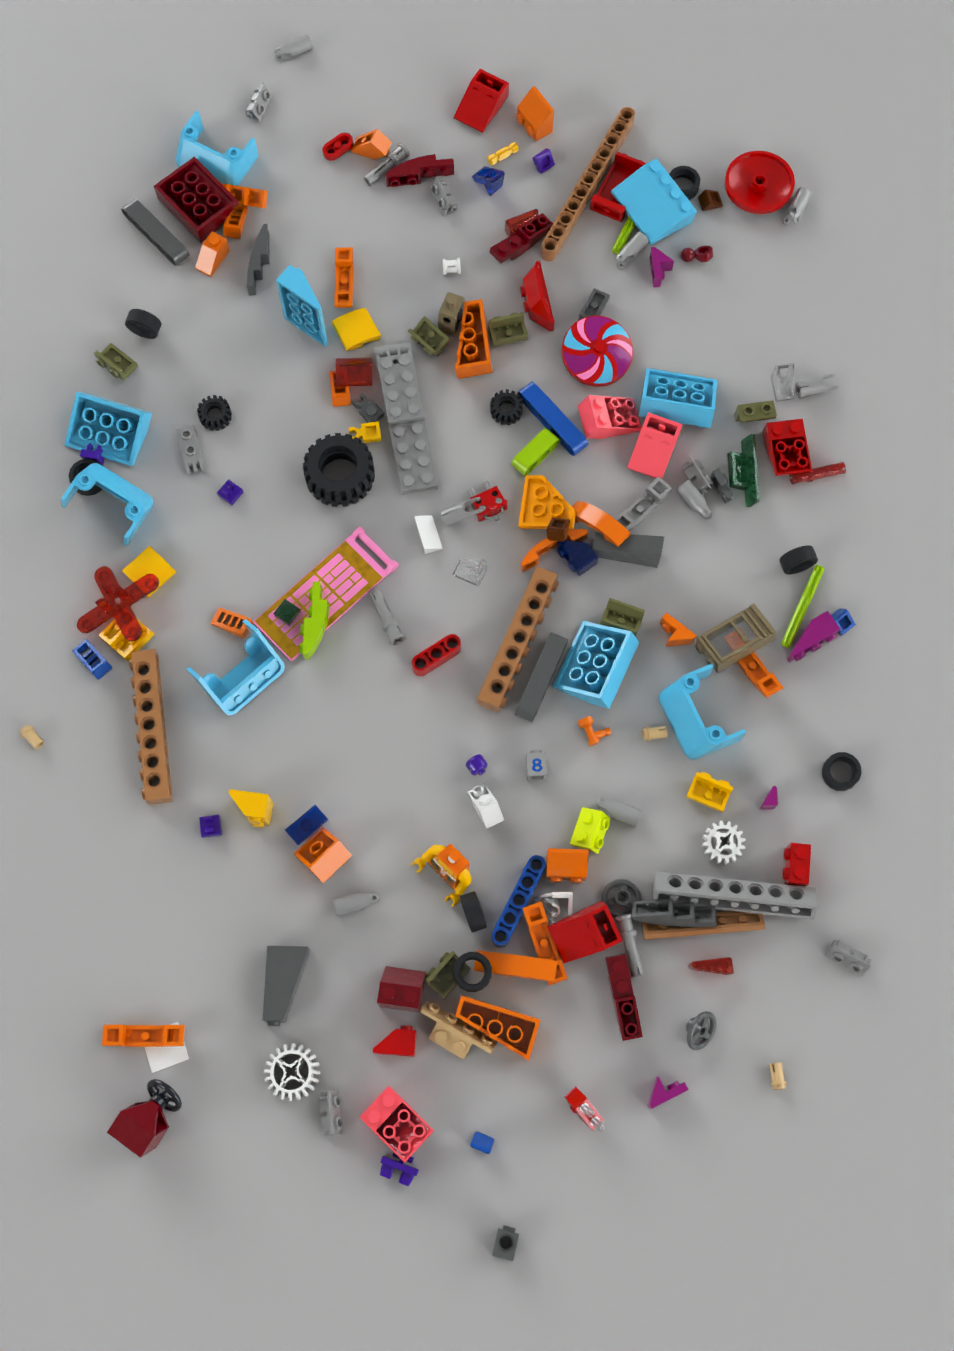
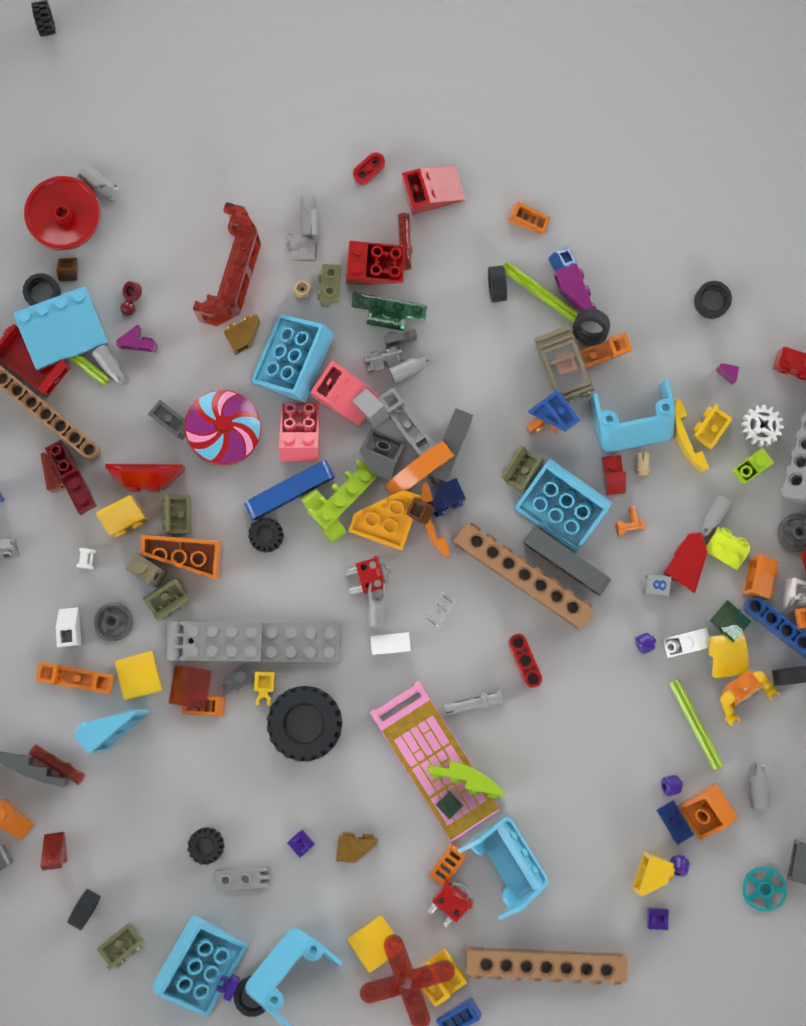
camera: 80 degrees left, 10 degrees up
(189, 292) = (53, 851): none -> clear red slope
(197, 630) = (451, 901): none -> red piece
(232, 535) = (354, 848): none -> pearl gold slope
(256, 926) = (764, 888): none -> teal wheel
(263, 286) = (57, 764): none -> clear red pin
(265, 836) = (681, 865): none -> dark purple piece
(342, 816) = (671, 785): none -> dark purple piece
(385, 263) = (68, 628): none -> white slope
(403, 292) = (106, 621): none -> dark grey piece
(406, 830) = (696, 724): none -> lime axle
(482, 846) = (728, 657): none -> yellow slope
(495, 284) = (122, 516): none -> yellow slope
(516, 843) = (730, 621): none -> clear green piece
(557, 463) = (343, 495): none -> lime hinge
(566, 792) = (688, 561): none -> red panel
(606, 490) = (381, 453): none -> dark grey slope
(637, 707) = (614, 475): none -> red slope
(646, 471) = (371, 408): none -> light grey slope
(677, 837) = (752, 466): none -> lime slope
(685, 633) = (555, 411): none -> blue wing
(688, 351) = (242, 335): none -> pearl gold slope
(707, 319) = (237, 273): none -> clear red windscreen
(713, 757) = (696, 459): none -> yellow slope
(748, 390) = (297, 289): none -> tan plate
(788, 659) = (591, 315): none -> black tyre
(867, 574) = (519, 221): none -> orange slope
(877, 485) = (432, 188): none -> slope
(880, 427) = (366, 167): none -> red plate
(935, 130) = (43, 18): none -> black tyre

